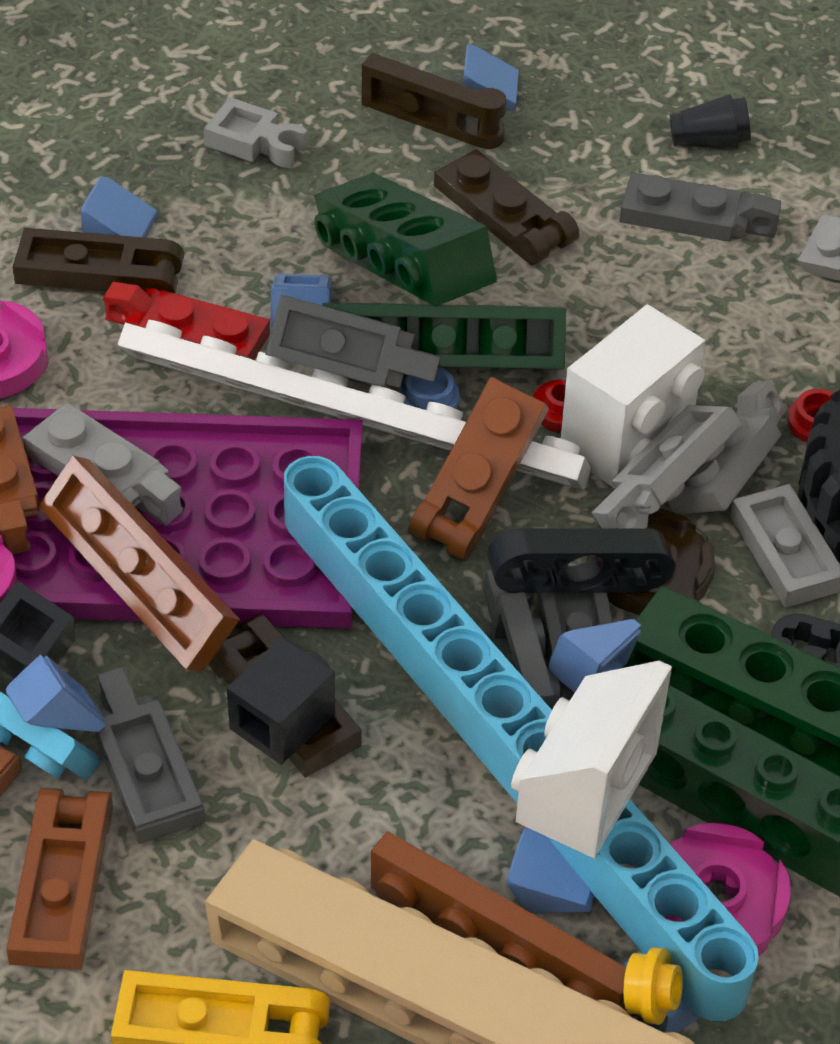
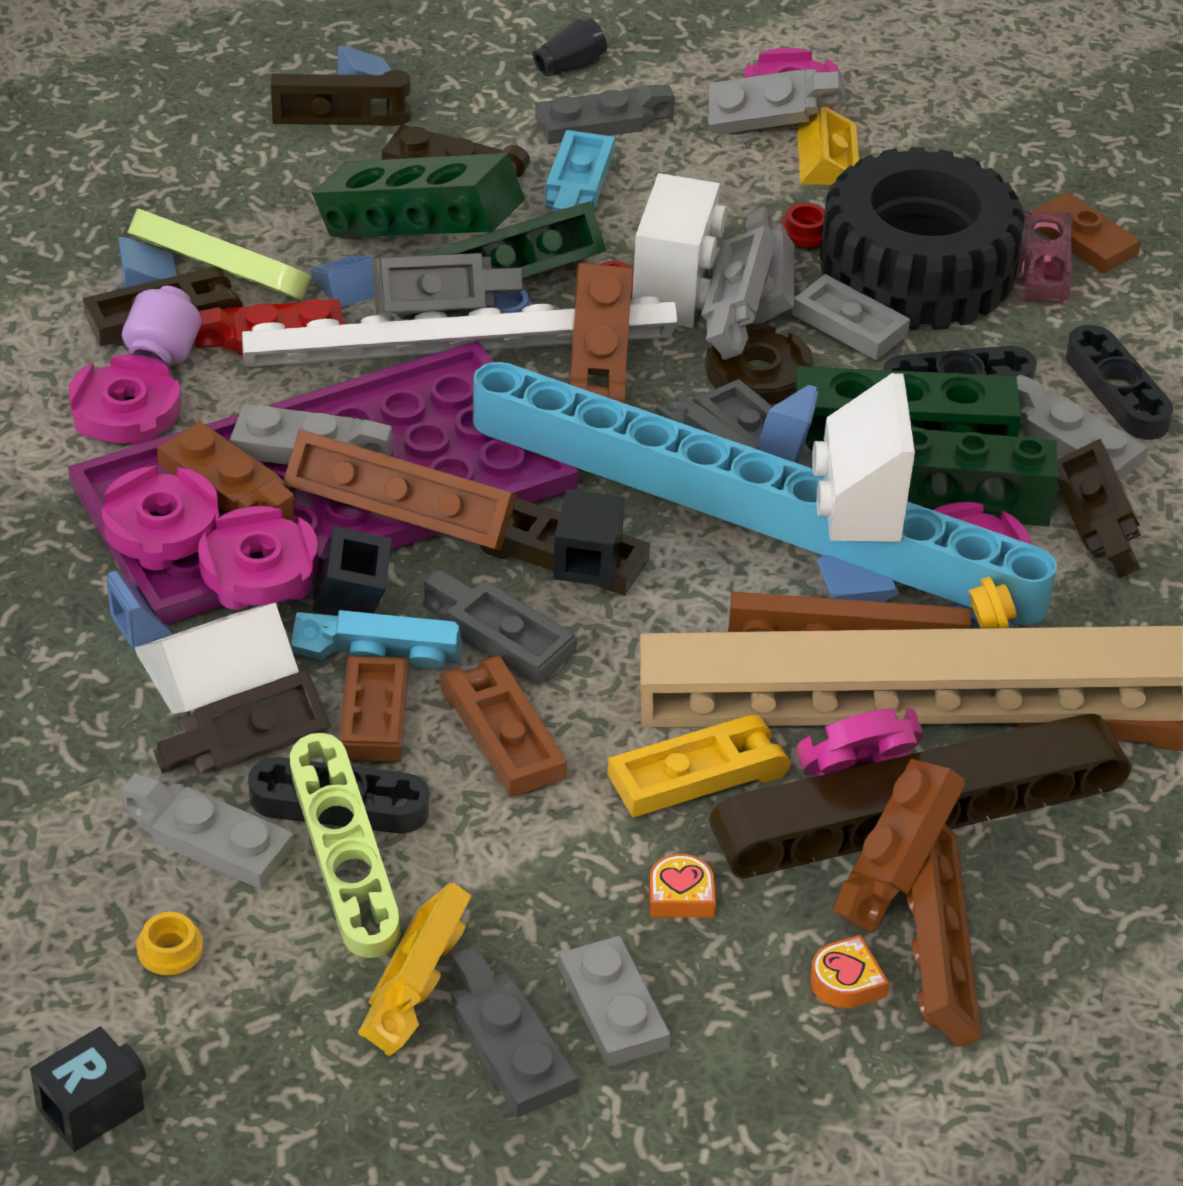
camera: 30 degrees left, 5 degrees down
(53, 698) = (415, 598): medium blue slope -> none
(64, 287) = (162, 325): none -> lavender head
(190, 229) = (220, 254): none -> yellowish green beam
(252, 130) = (206, 169): light grey plate -> none
(539, 560) = (707, 374): black beam -> none
(613, 269) = (579, 170): none -> medium azure hinge

